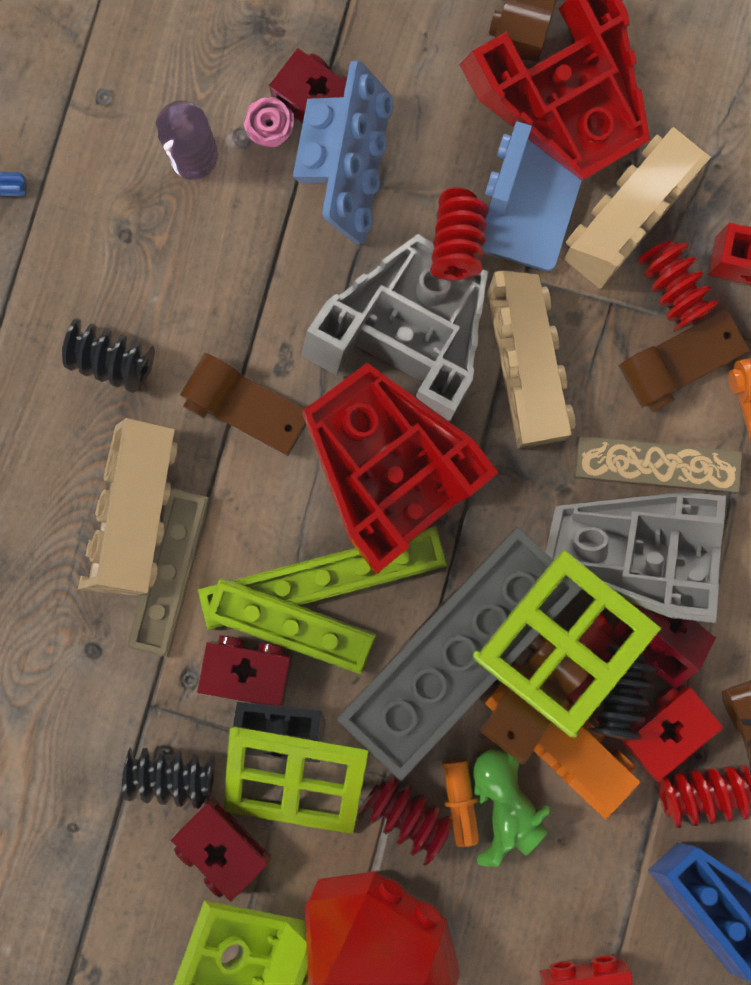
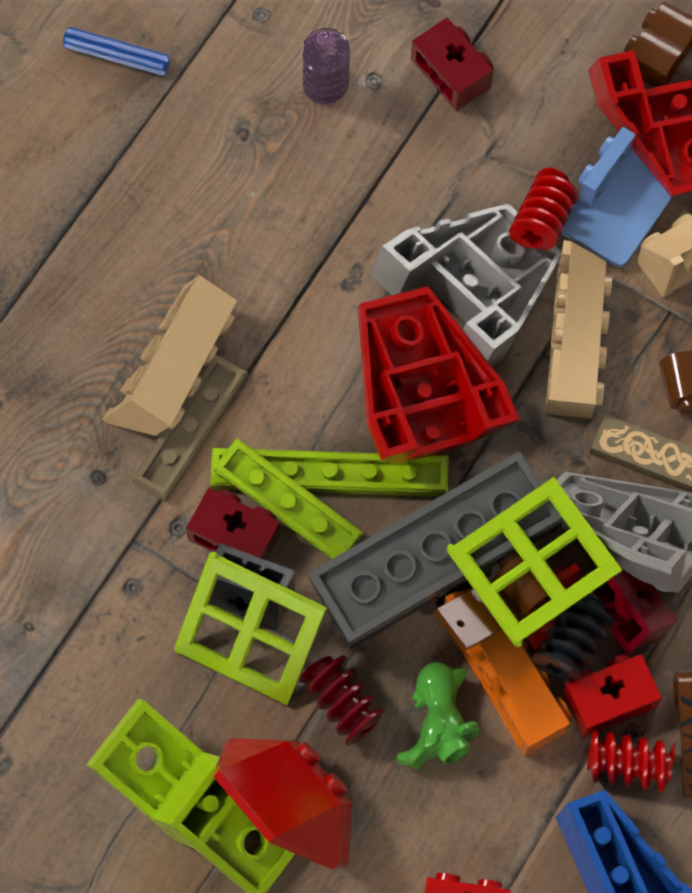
camera: 15 degrees right, 15 degrees down
(104, 358) = (194, 228): black piece -> none
(167, 778) = (134, 600): black piece -> none
(209, 829) = (159, 654): dark red brick -> none
(243, 404) = (289, 288): reddish brown door -> none
(269, 110) = (402, 63): bright pink plate -> none
(344, 149) = (465, 109): medium blue bracket -> none
(461, 803) = (397, 703): orange axle -> none

